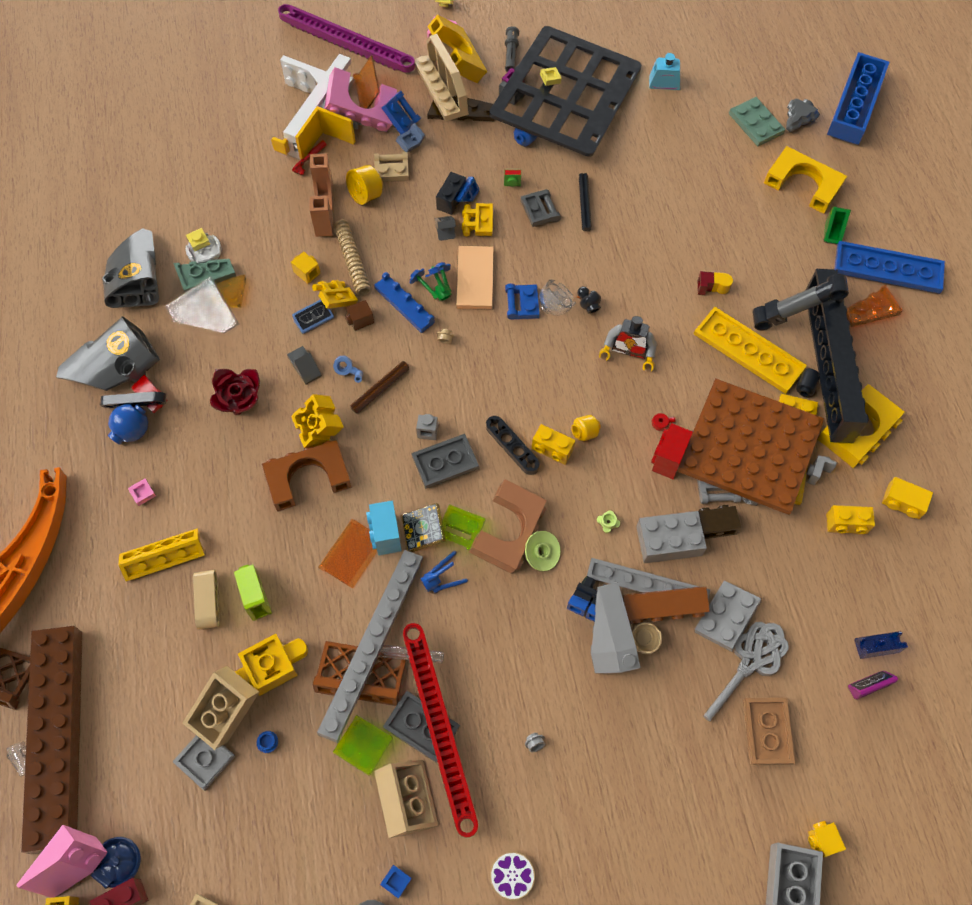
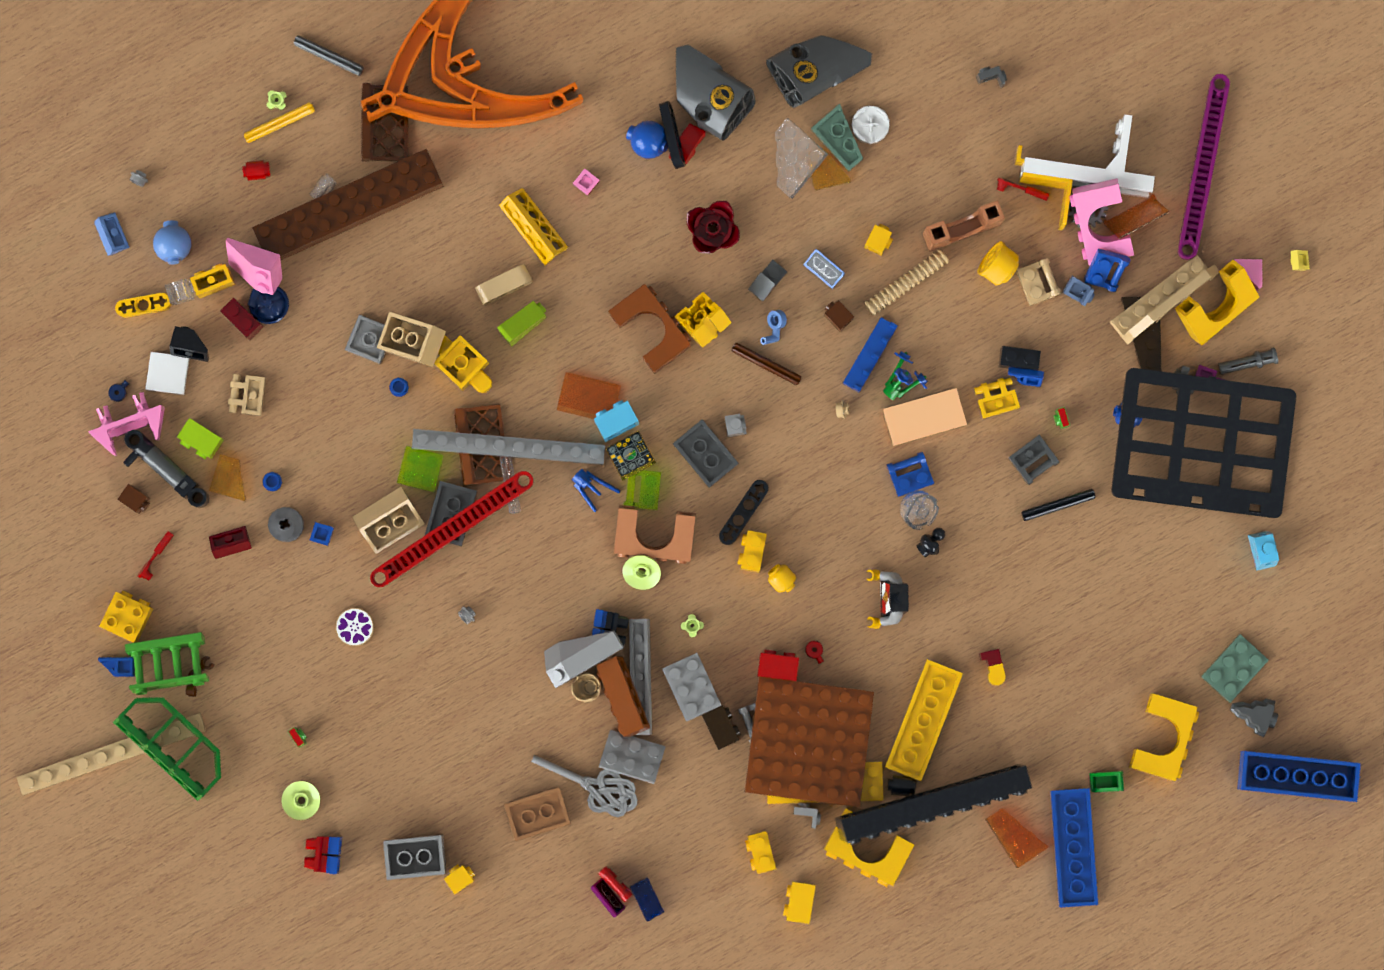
camera: 75 degrees right, 20 degrees up
(197, 239) = (875, 116): light yellow plate -> none
(206, 147) = (987, 74): none -> dark grey bracket
(335, 294) = (849, 286): yellow plate -> none
(445, 227) = (977, 365): dark grey slope -> none
(550, 76) = (1206, 420): light yellow plate -> none
(777, 311) = (977, 756): black piece -> none
(862, 668) = (621, 889): none -> red plate

